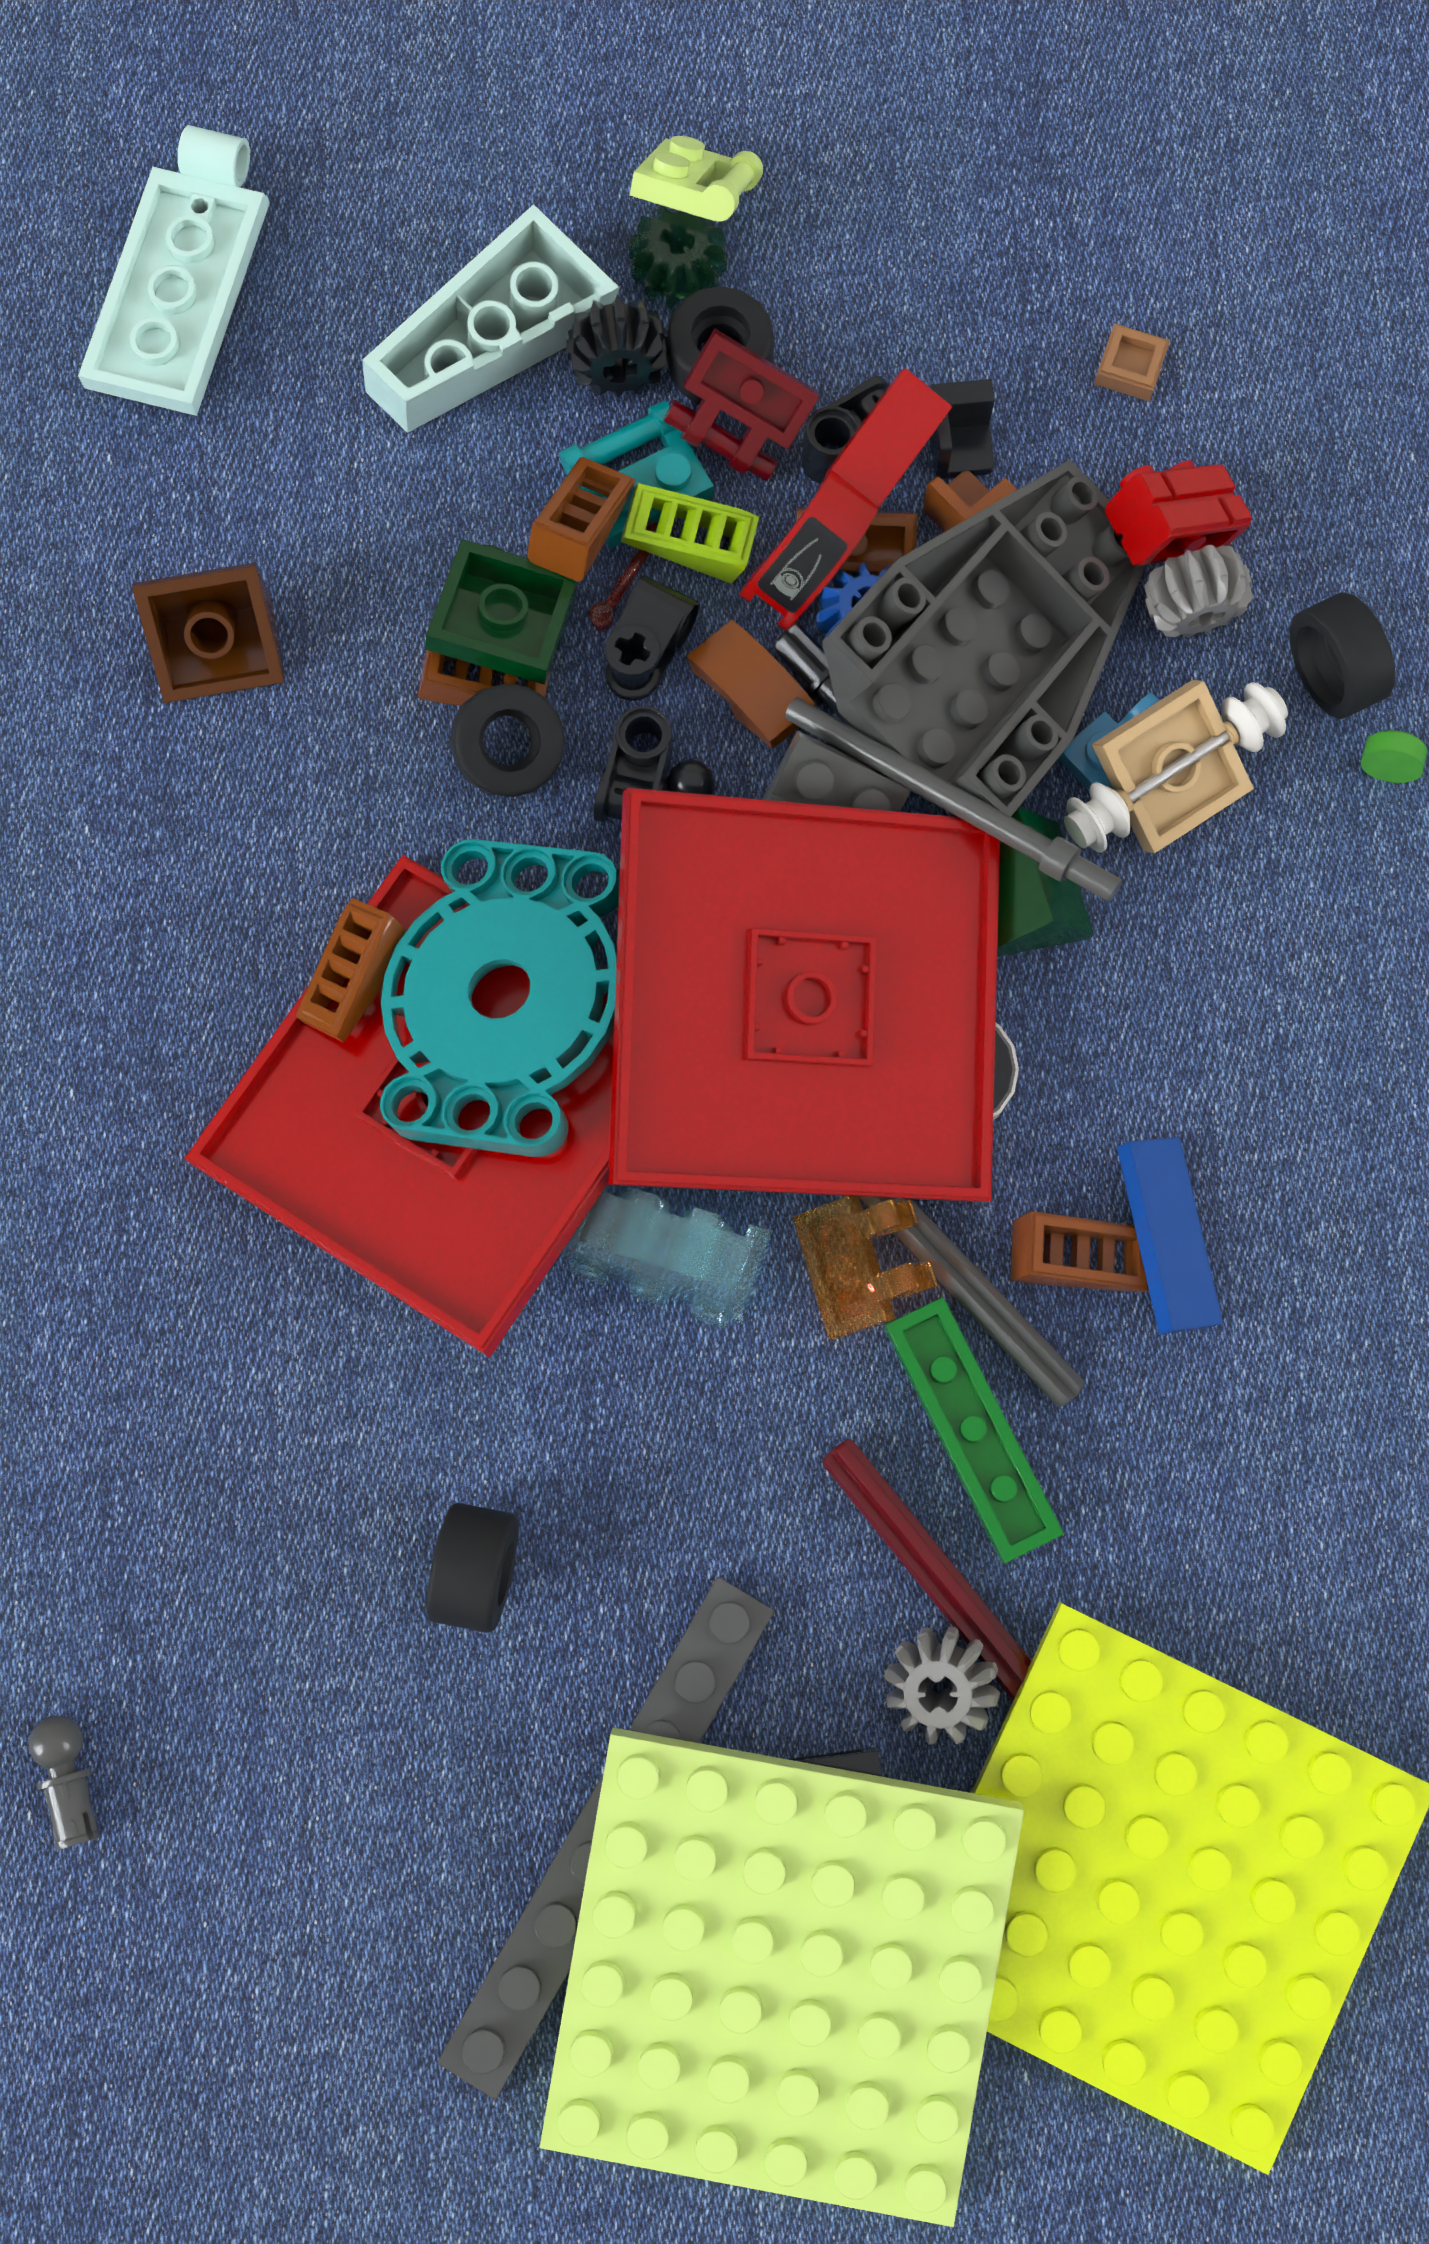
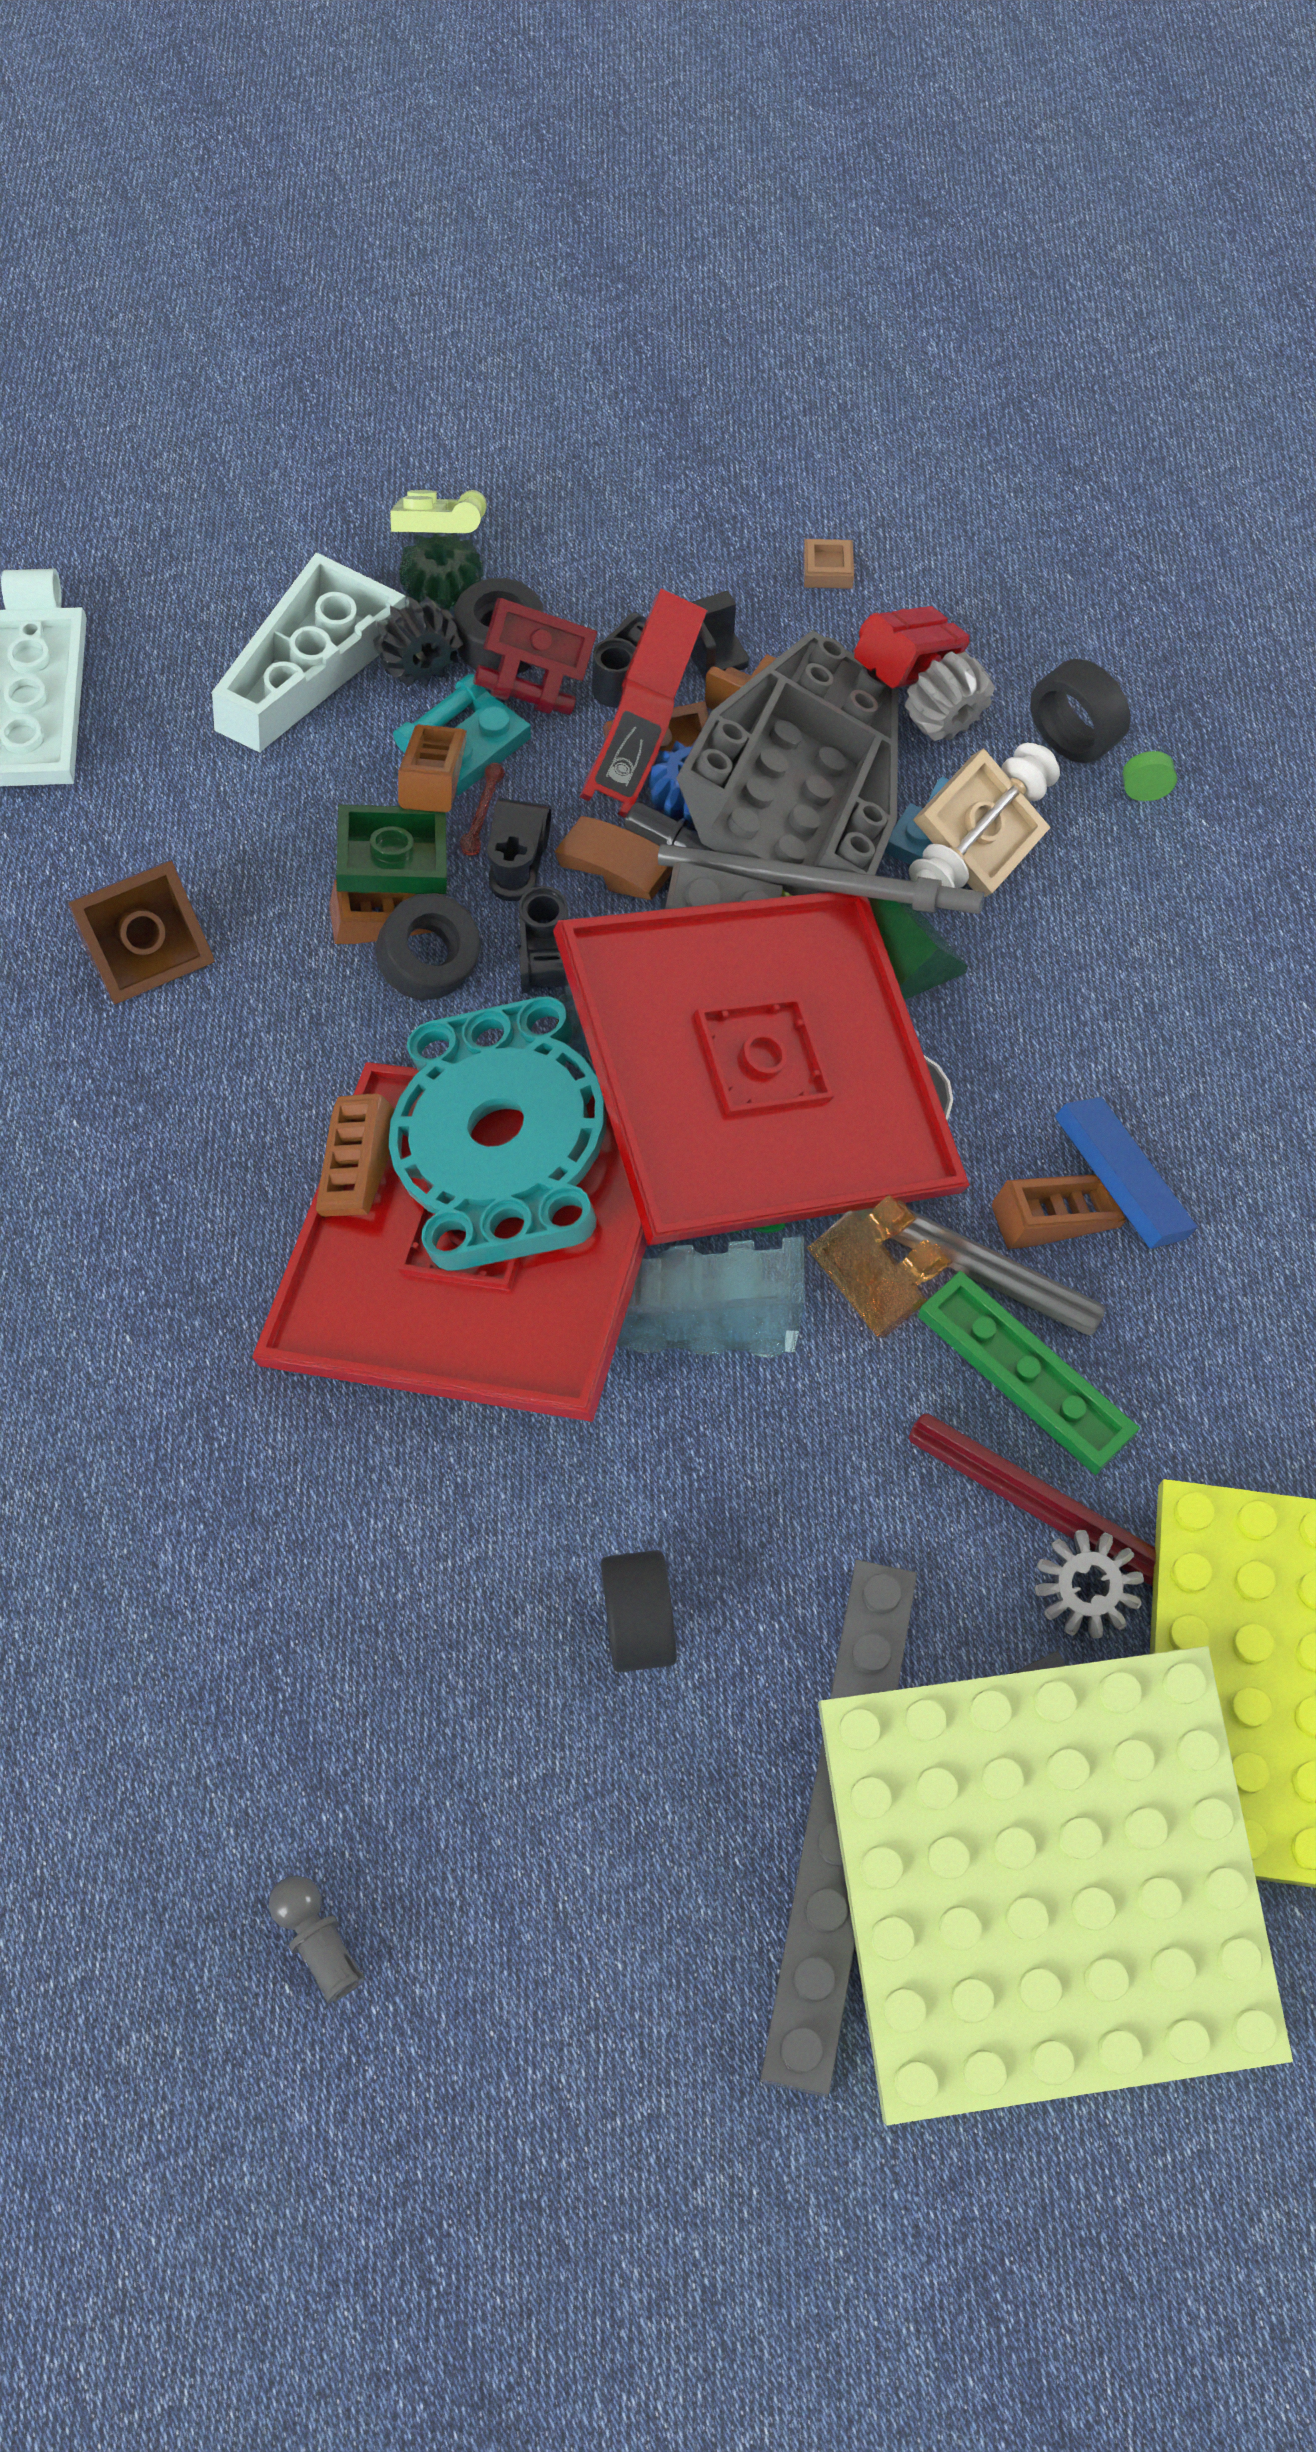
camera: 20 degrees left, 15 degrees down
(696, 512) = (555, 749): lime slope -> none

